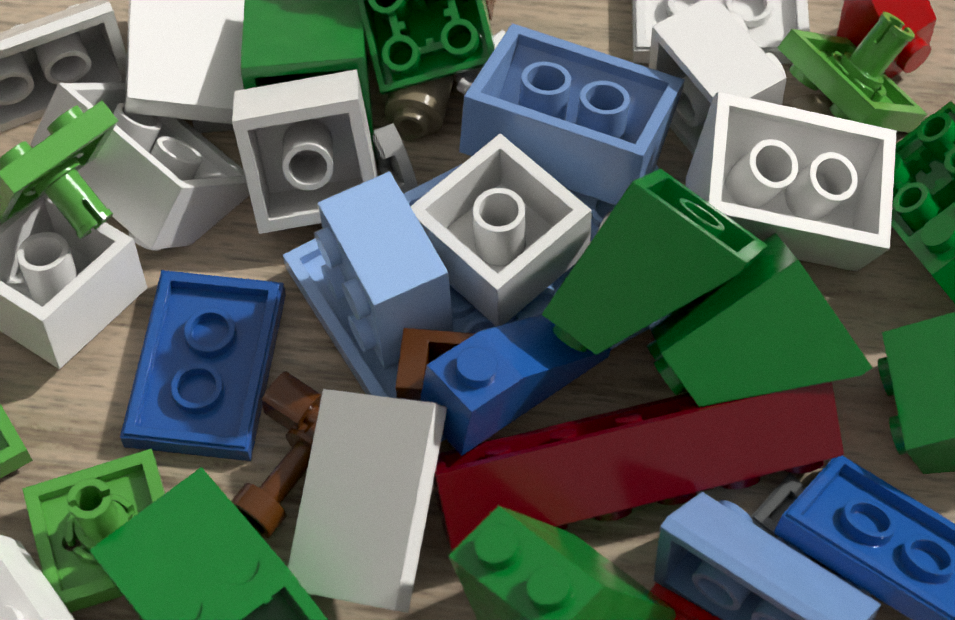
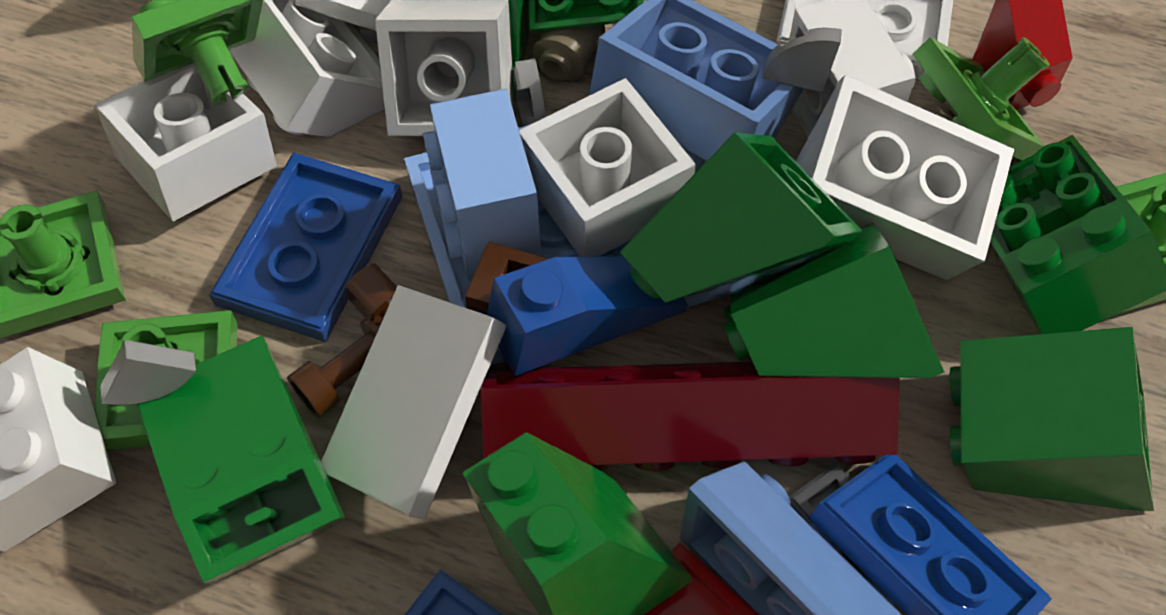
camera: 10 degrees right, 0 degrees up
(102, 528) = (145, 373): none -> light grey tile
(675, 82) = (804, 60): none -> light grey tile

